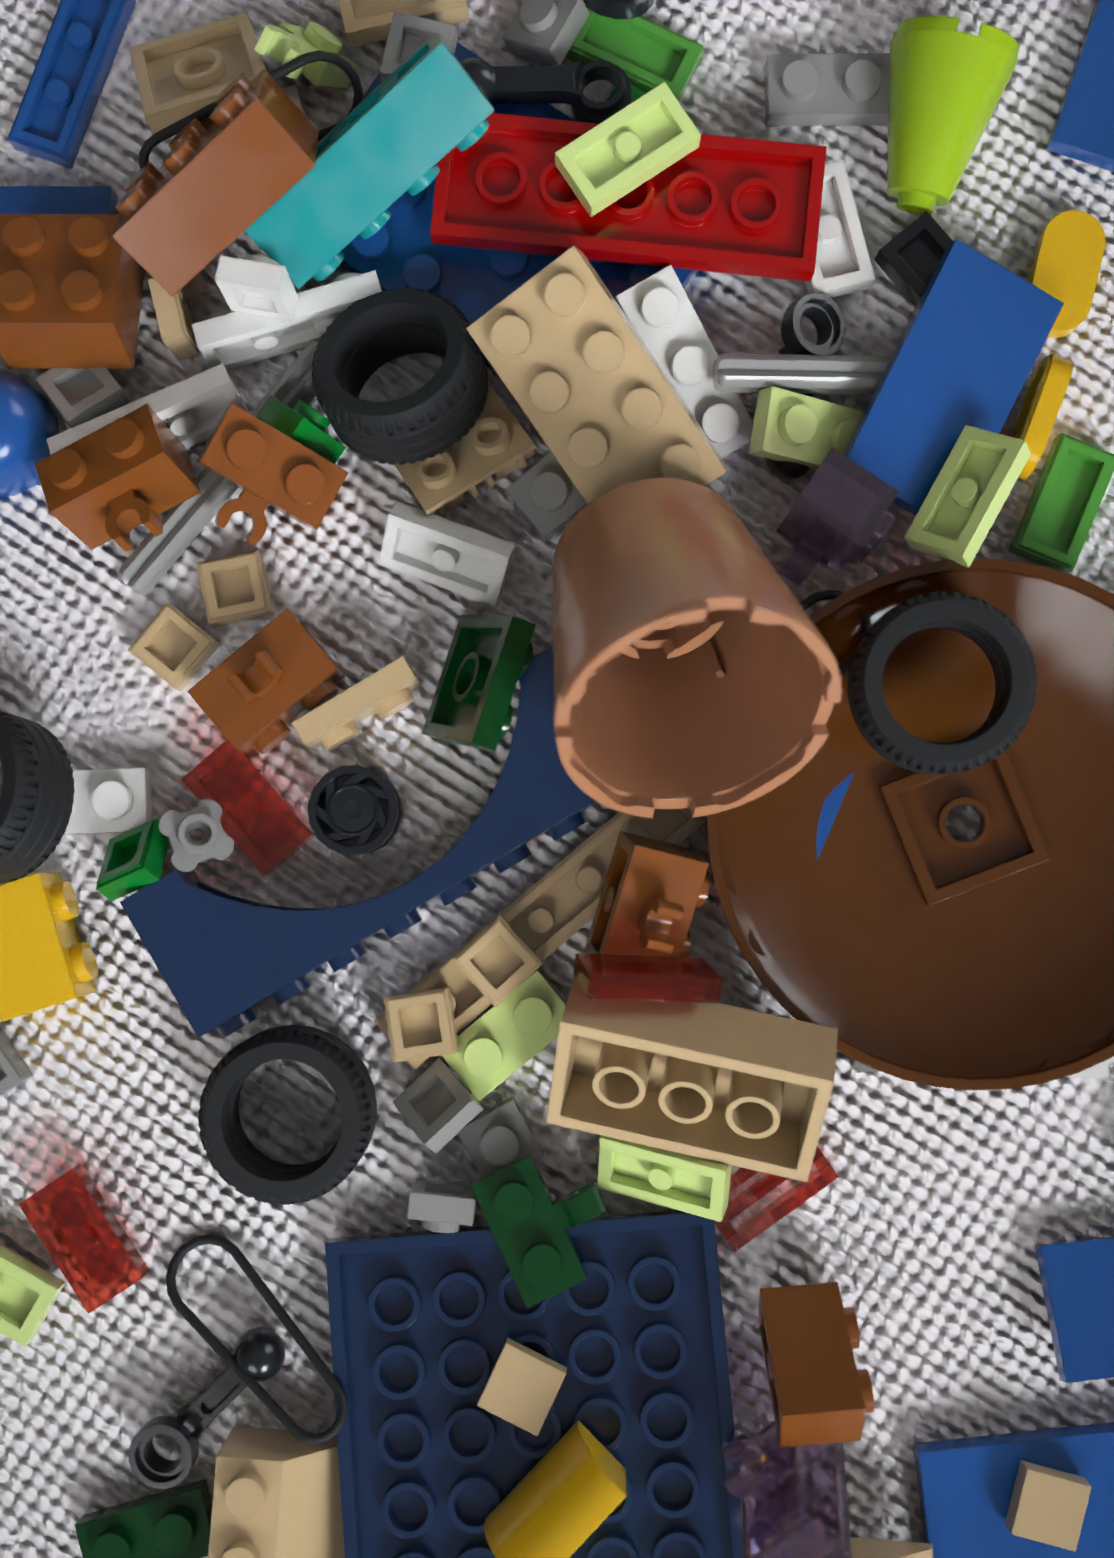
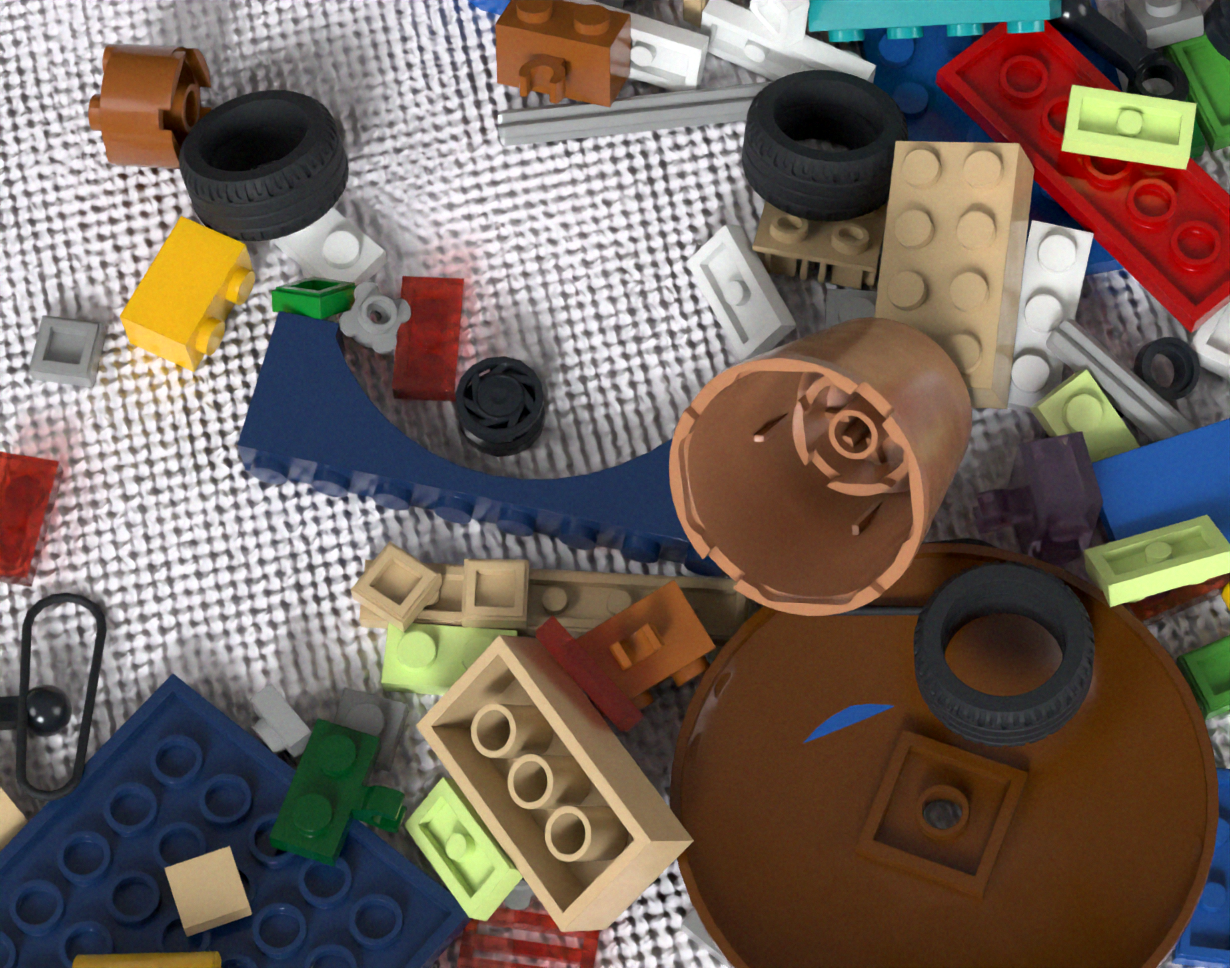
camera: 45 degrees right, 20 degrees down
(174, 647) = (487, 194): tan tile -> none
(235, 588) = (569, 193): tan tile -> none
(236, 1156) = (224, 503): black tyre -> none
(267, 685) = (527, 269): dark orange brick -> none
(269, 472) = (669, 129): dark orange brick -> none
(303, 426) = (723, 125): green plate -> none
(336, 719) = (593, 339): tan plate -> none
(437, 1105) = (349, 656): light grey plate -> none
(480, 680) = (657, 398): dark green plate -> none

